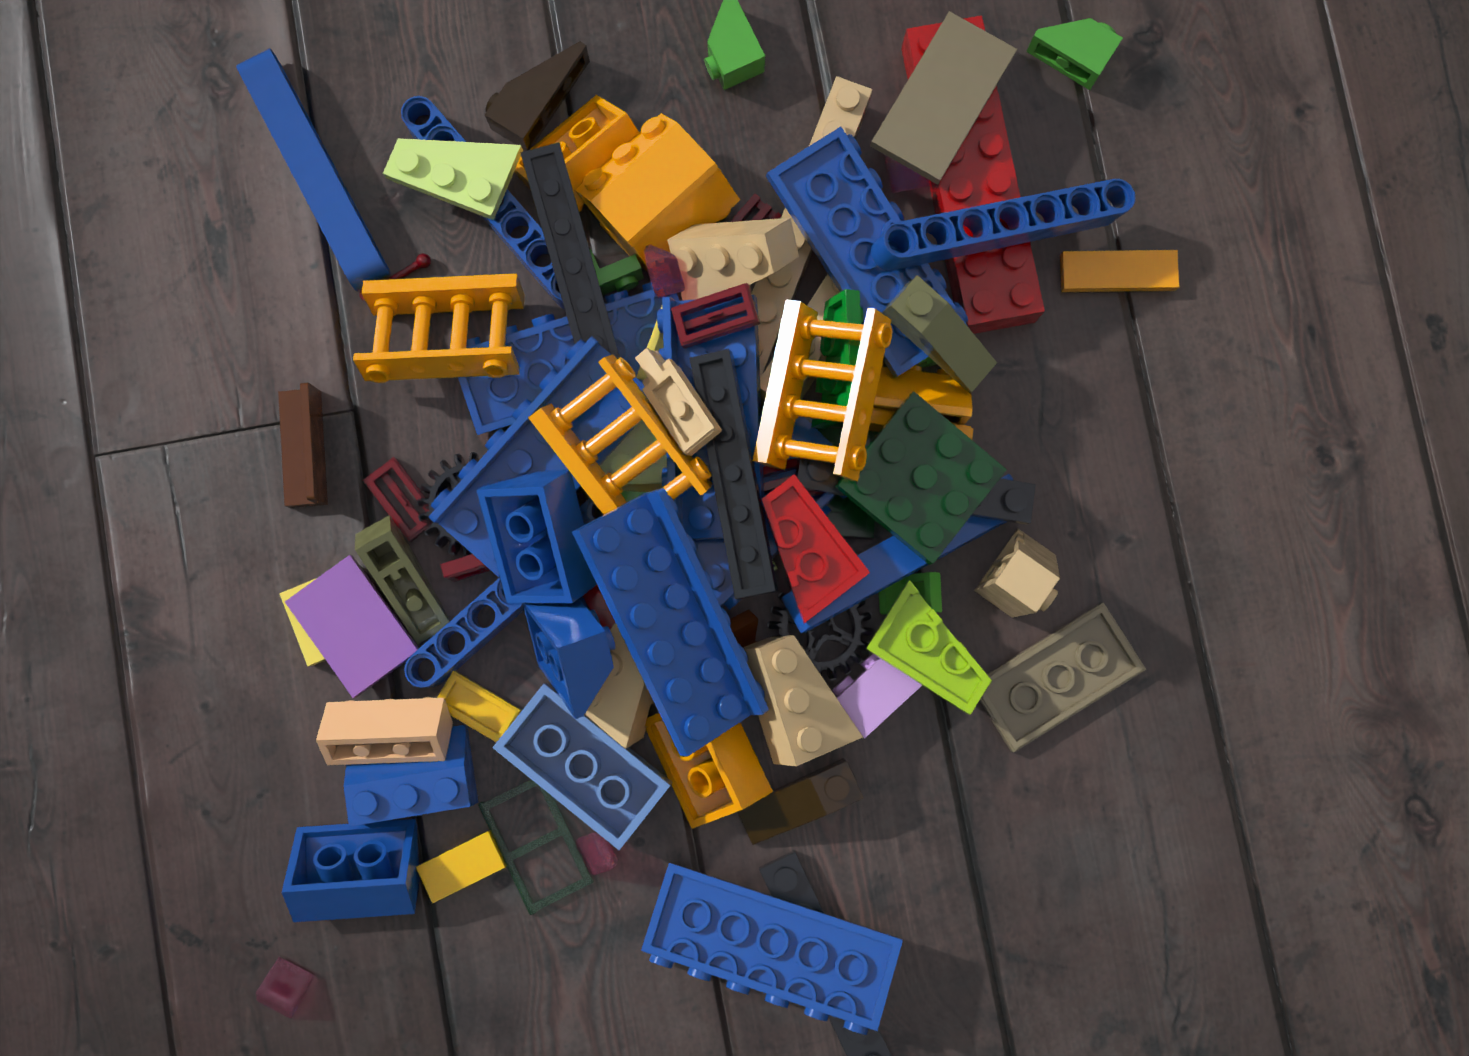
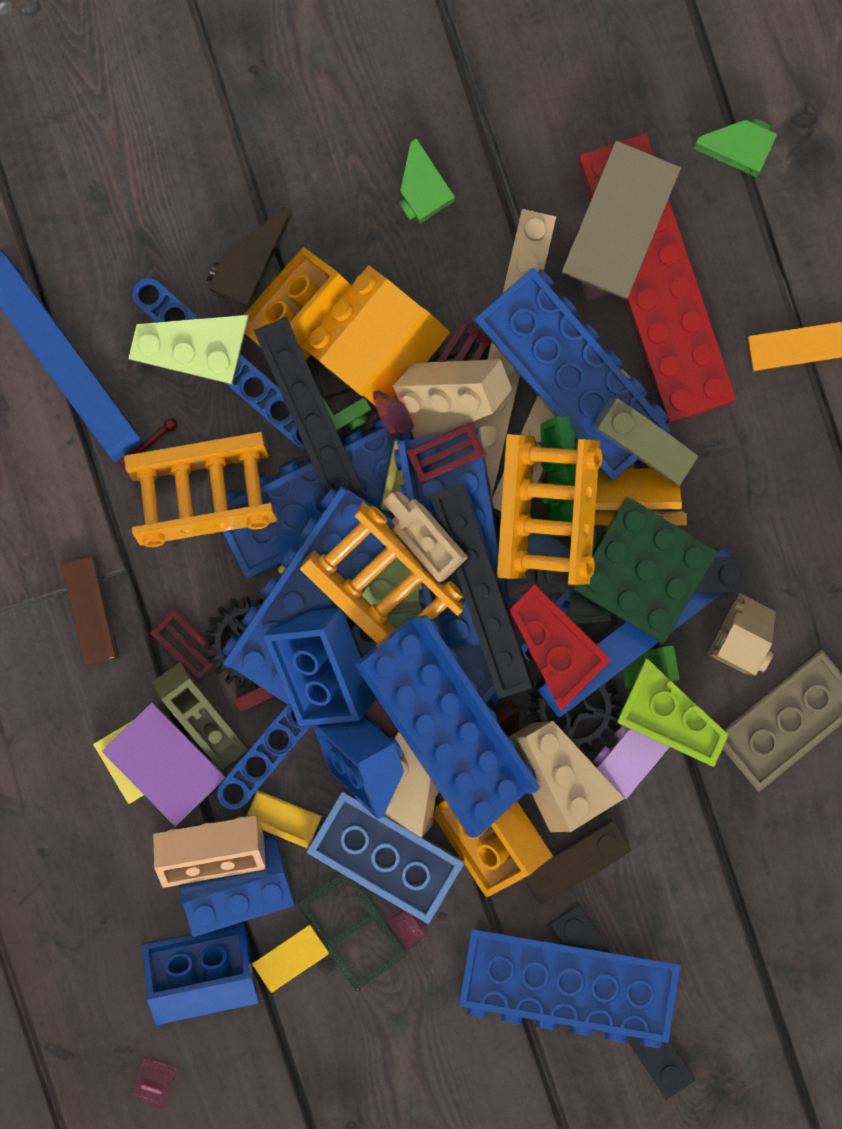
camera: 10 degrees left, 5 degrees up
(990, 234) = (705, 331): blue beam -> none

